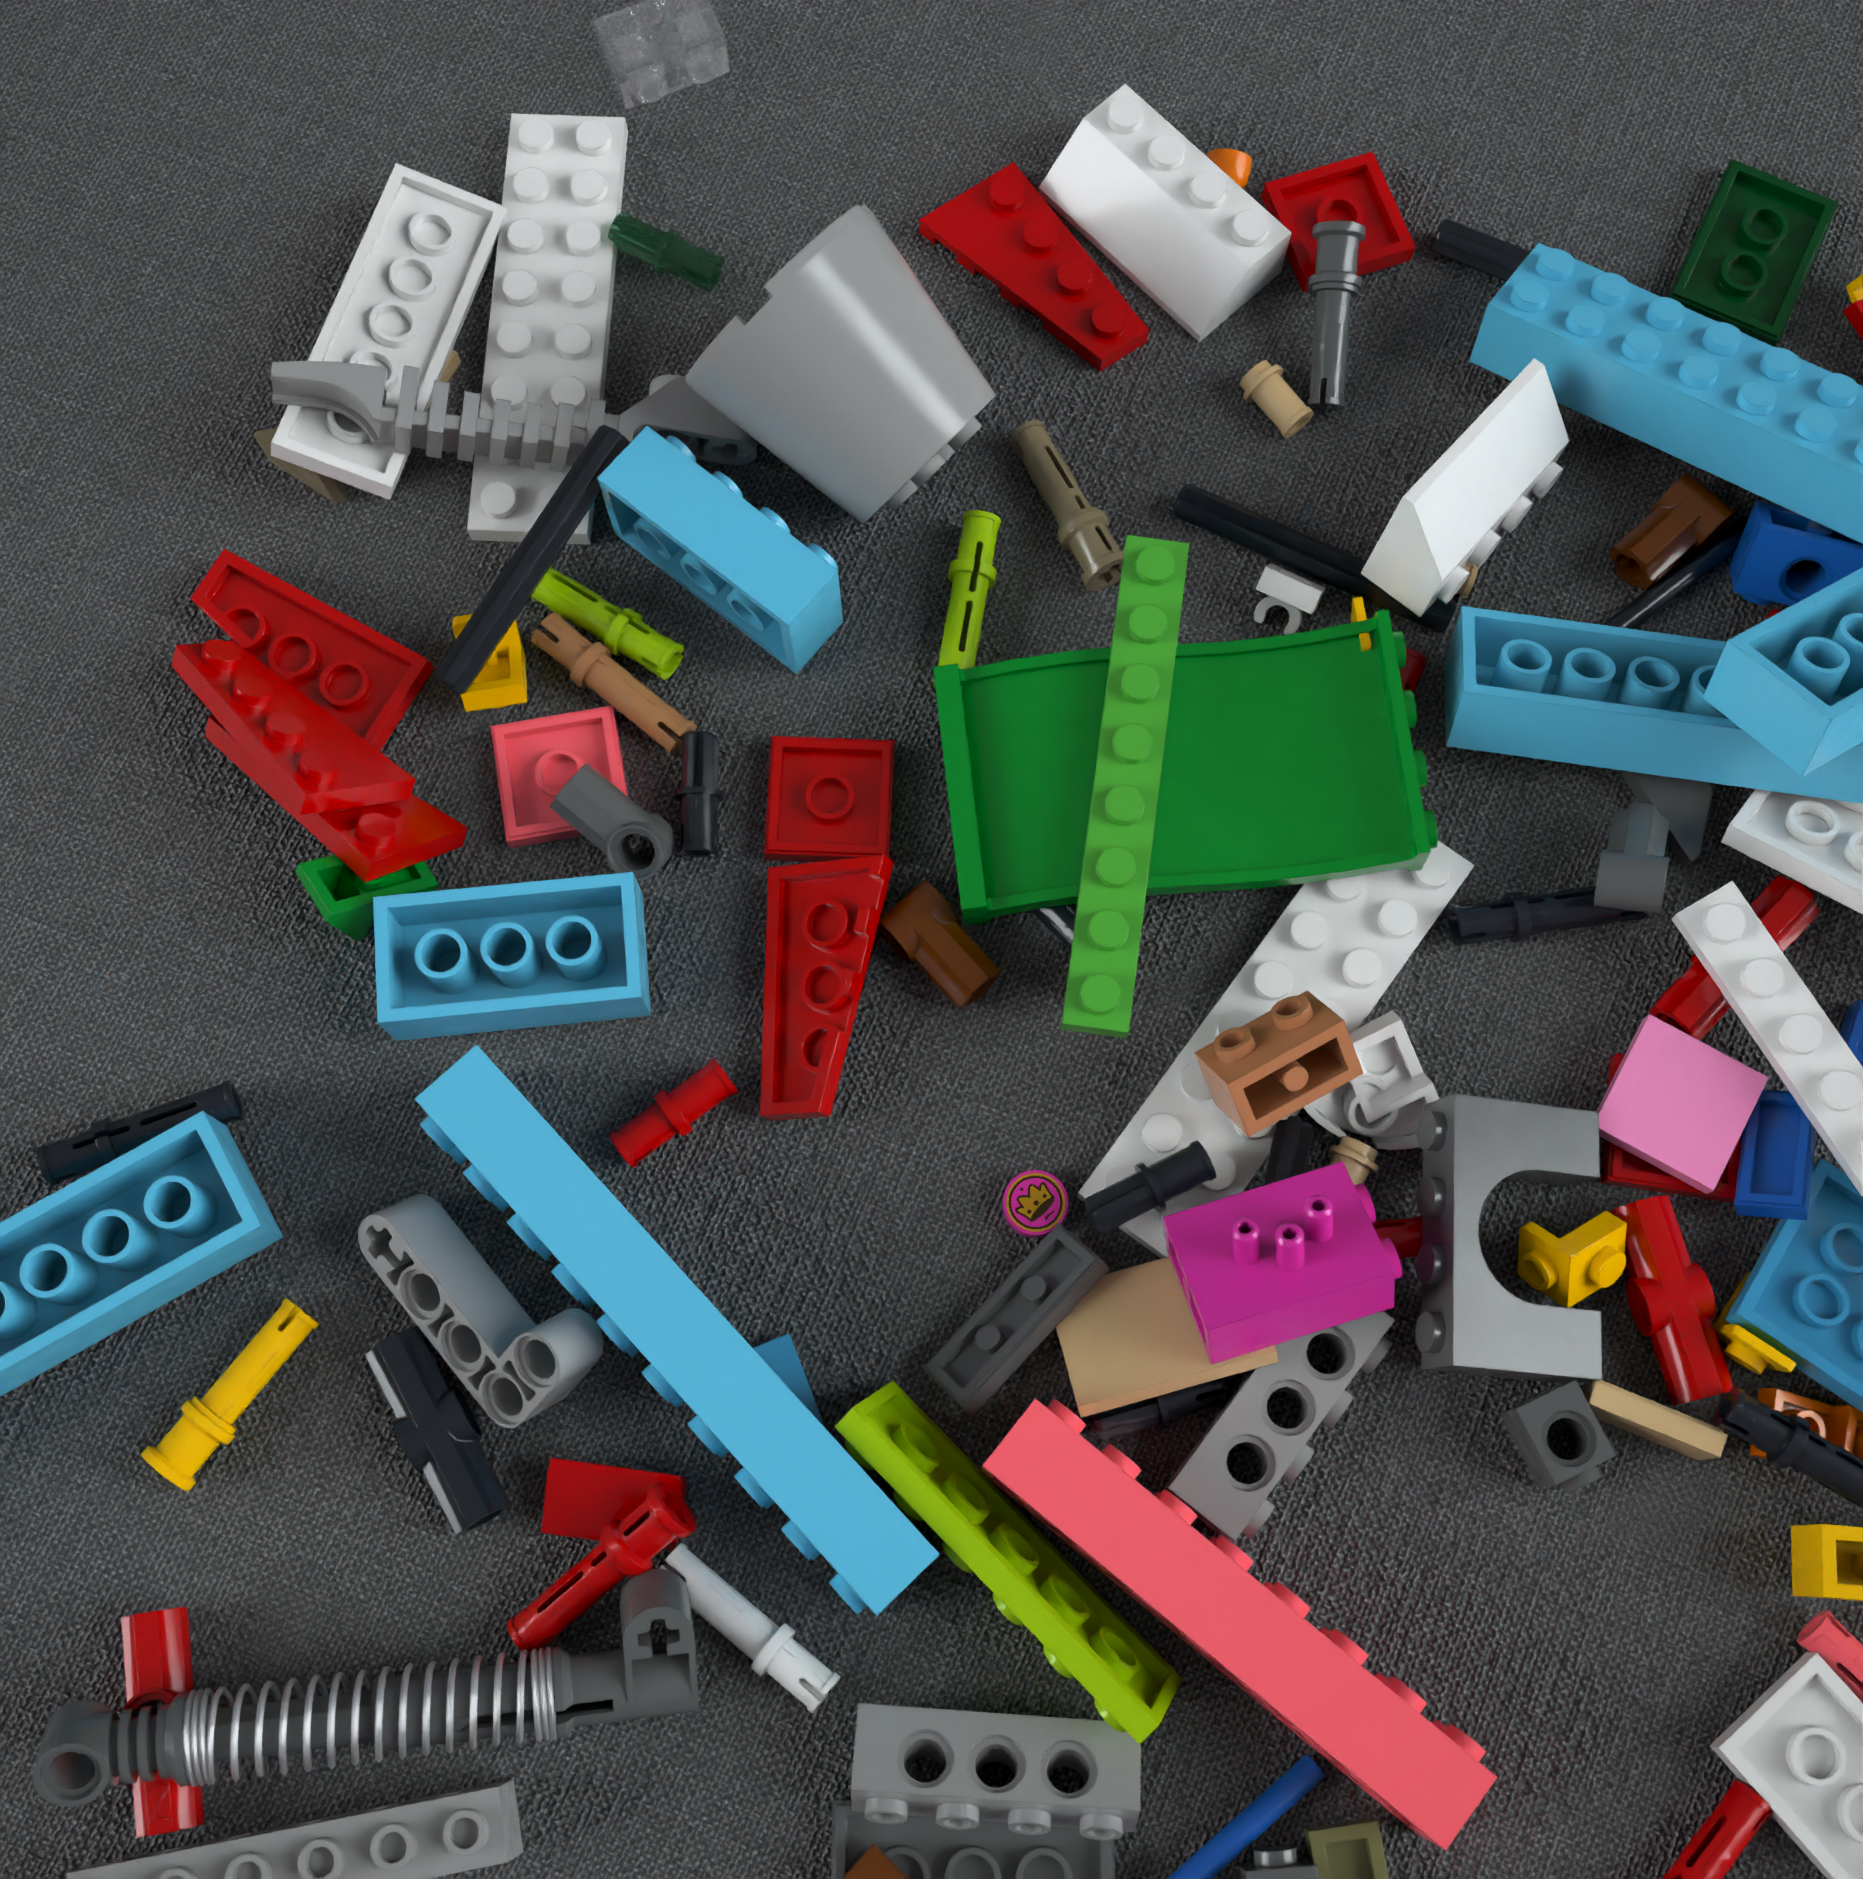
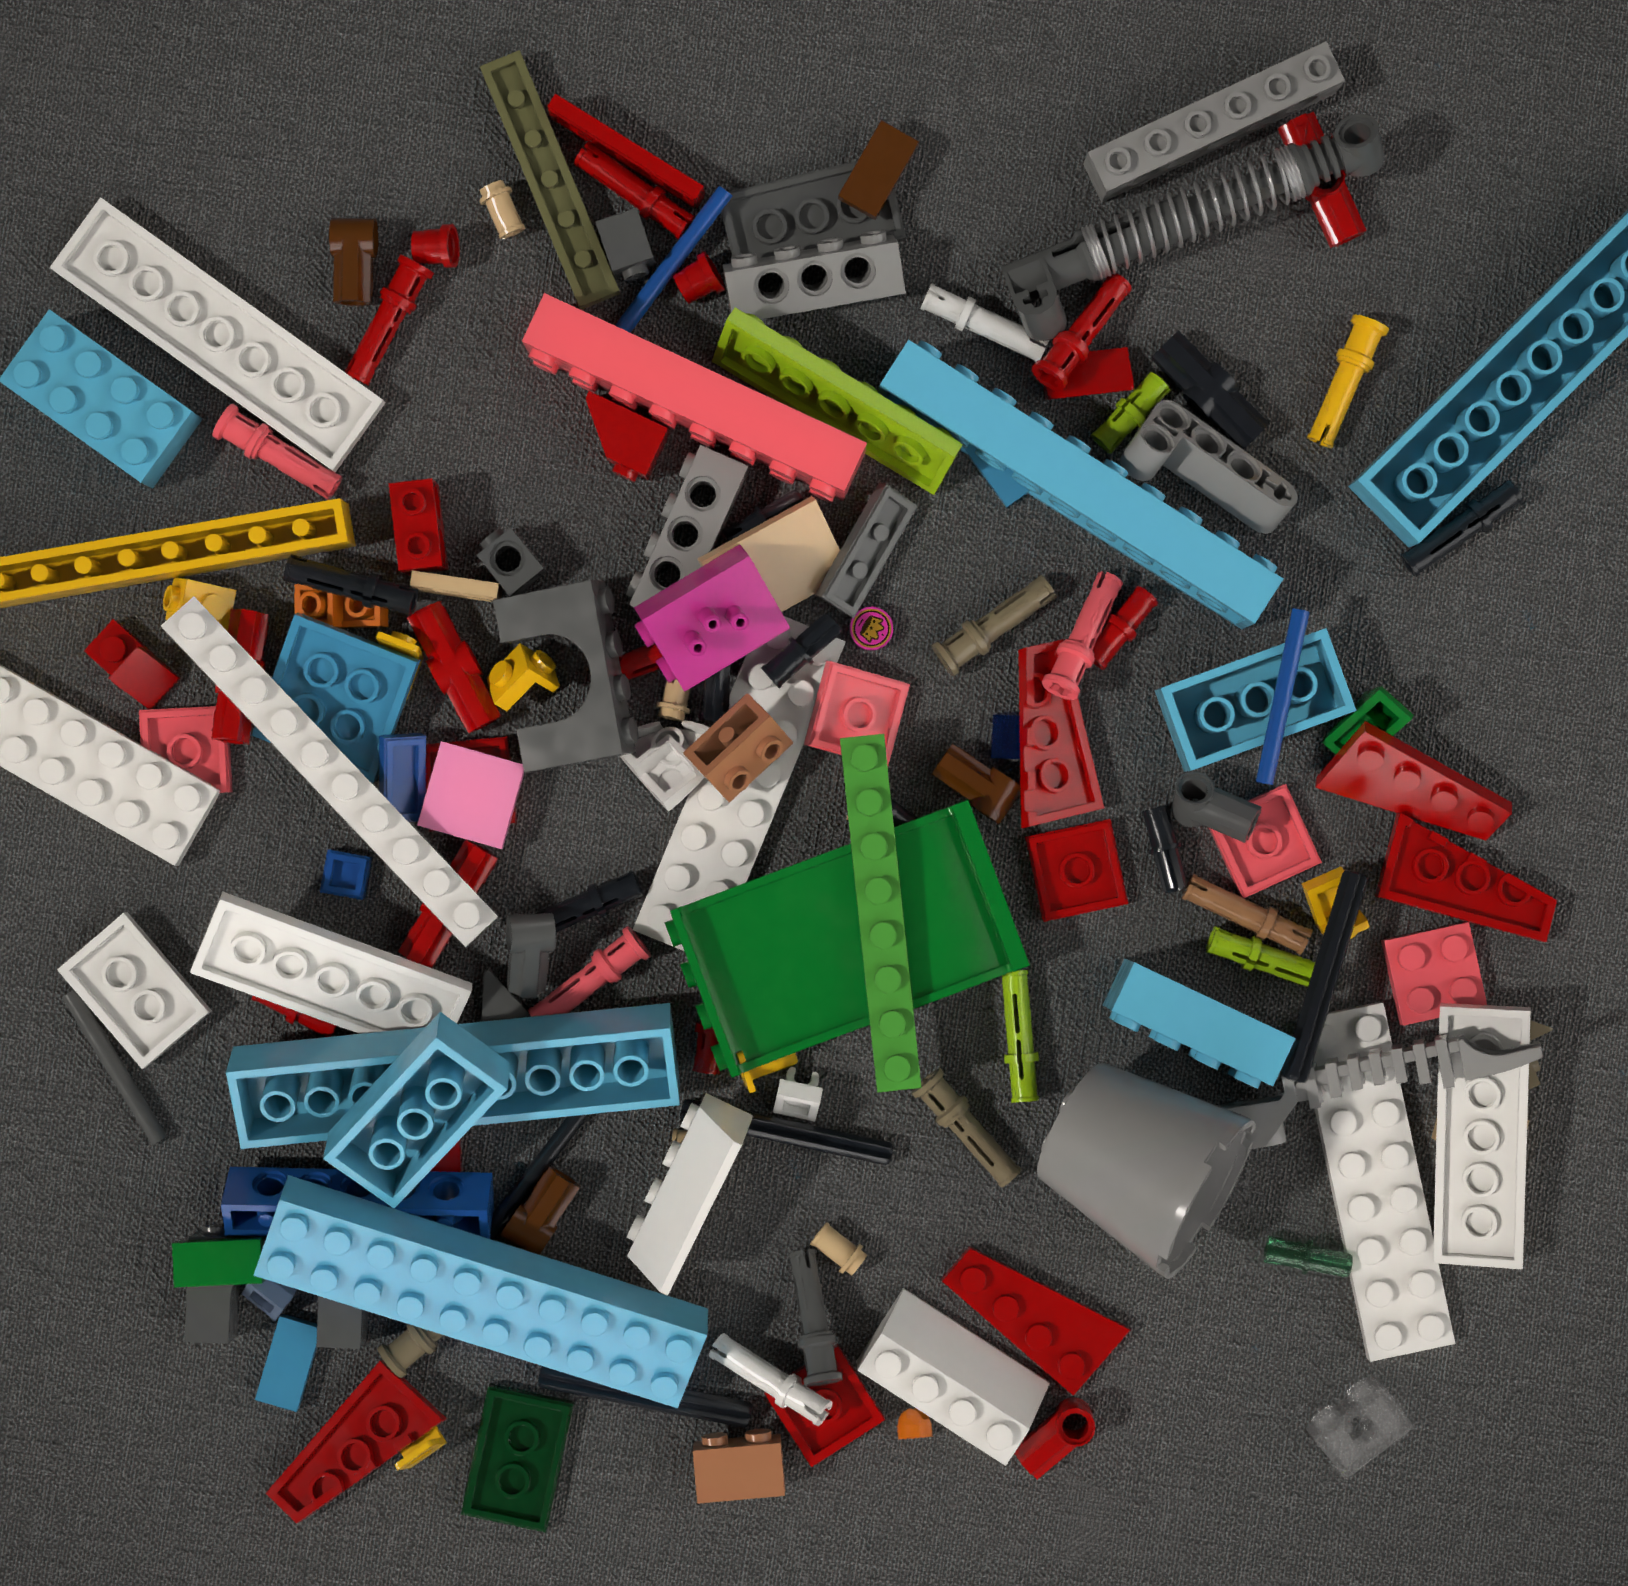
camera: 160 degrees right, 15 degrees up
(287, 735) = (1450, 810): red wing -> none
(388, 553) = (1433, 970): none -> coral plate
(469, 939) = (1282, 696): none -> blue piece
(565, 1428) = (1130, 412): none -> lime pin
(747, 1085) = (1076, 652): none -> coral pin
(880, 1003) = (1005, 737): none -> clear blue tile
(883, 1152) = (978, 635): none -> dark tan pin
(1036, 122) = (1052, 1440): none -> red piece
(1087, 1088) = (855, 705): none -> coral tile
(1175, 1818) = (699, 279): none -> red piece
(1346, 1586) = (627, 438): none -> red slope
(1407, 258) = (783, 1387): none -> white pin
(1468, 167) = (738, 1466): none -> nougat brick
(1524, 823) = (605, 967): none -> coral pin
(1694, 1527) = (418, 526): none -> red brick

